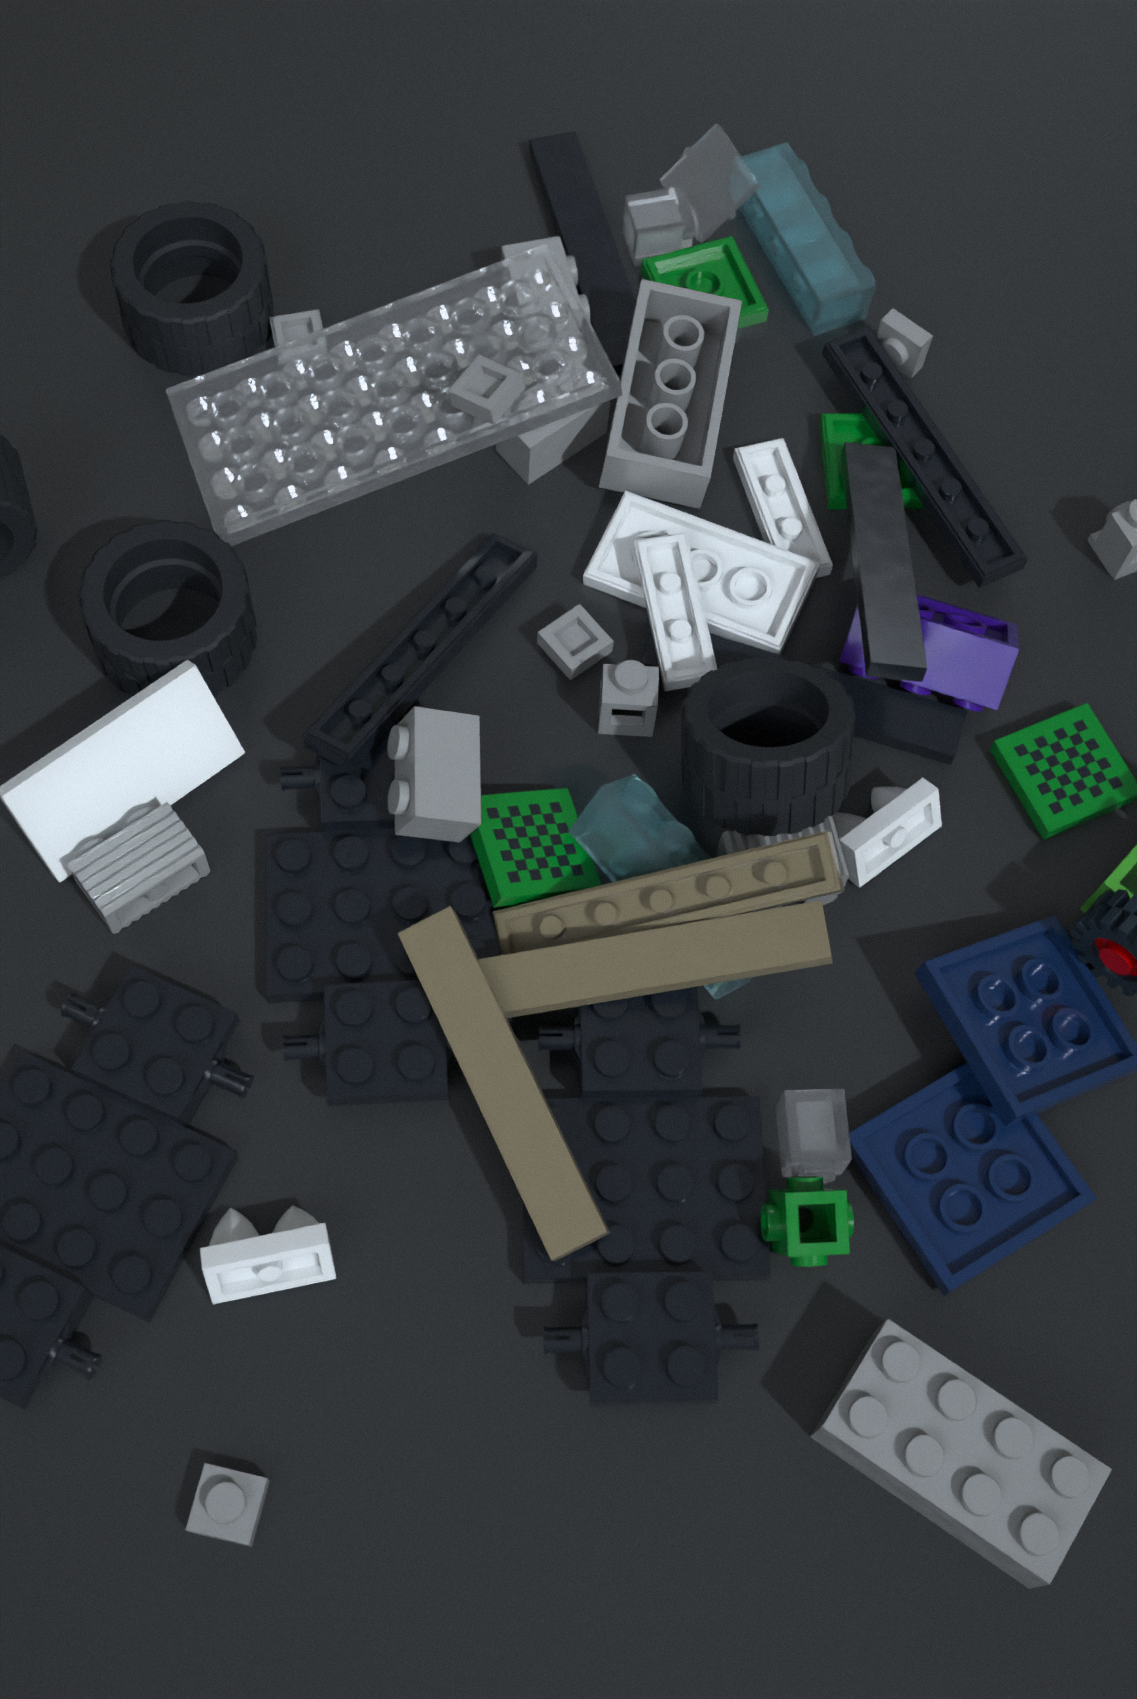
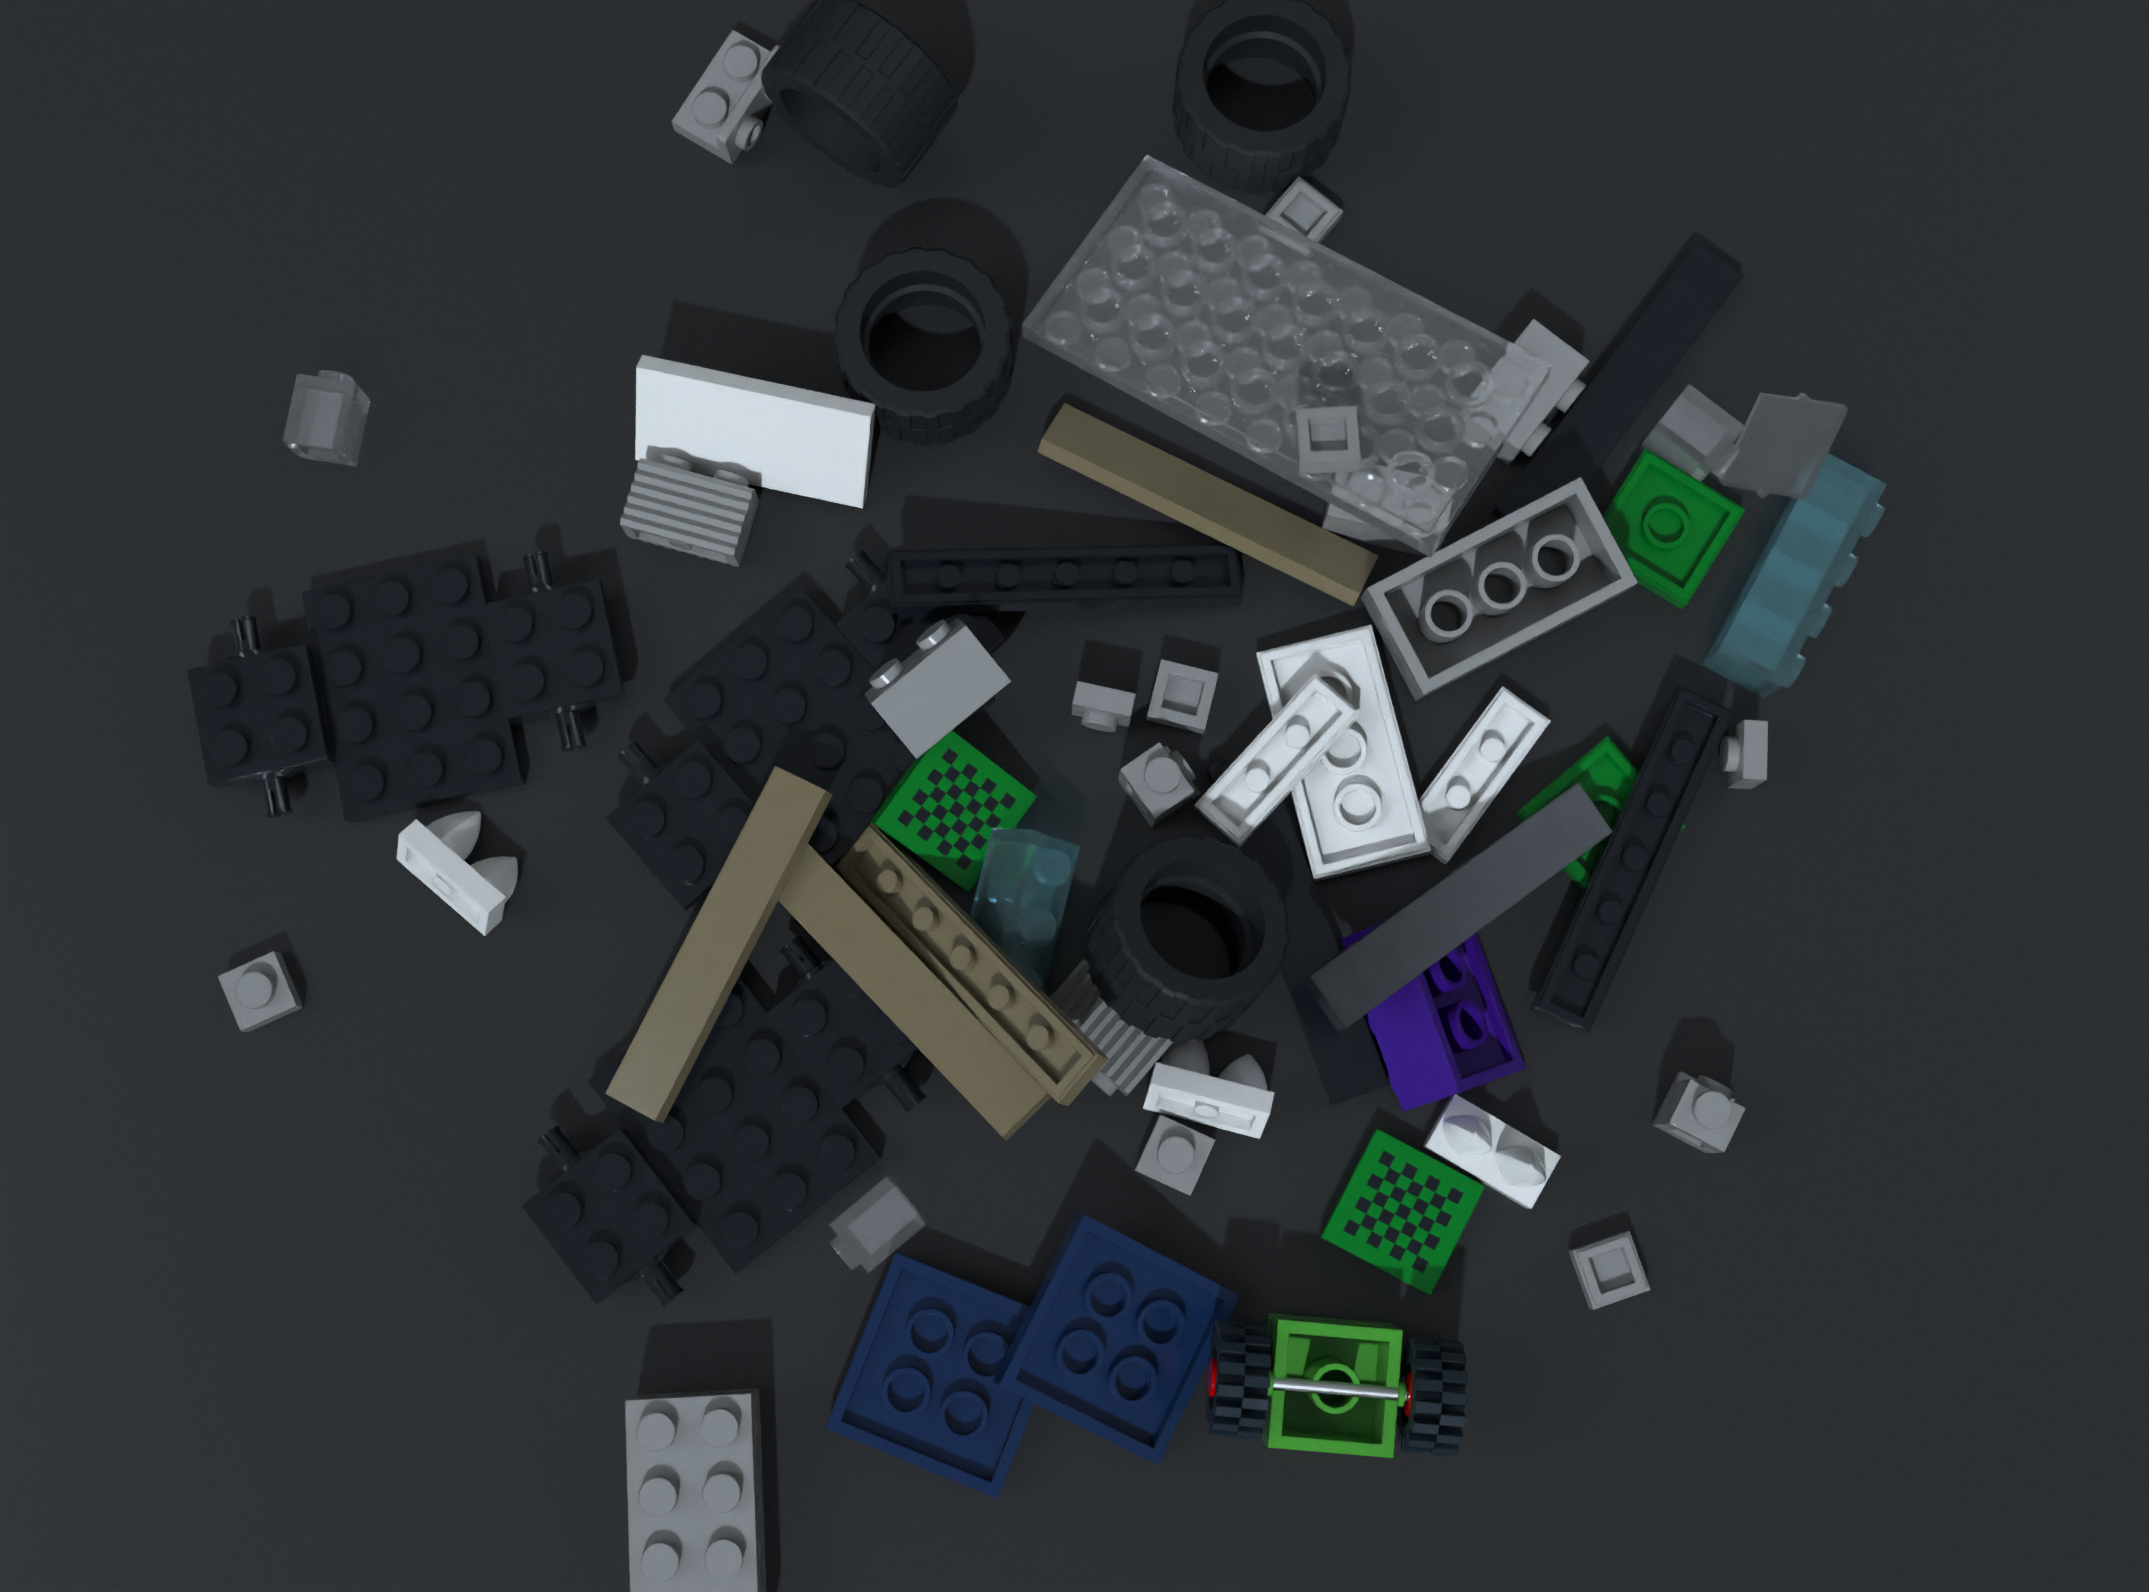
camera: 55 degrees right, 15 degrees up
(447, 530) = (1208, 504): none -> dark tan tile
(538, 694) = (1102, 706): none -> light grey plate
(828, 1223) = (793, 1273): green brick -> none
(912, 890) = (1175, 1155): none -> light grey plate
(1063, 683) = (1491, 1151): none -> white tile

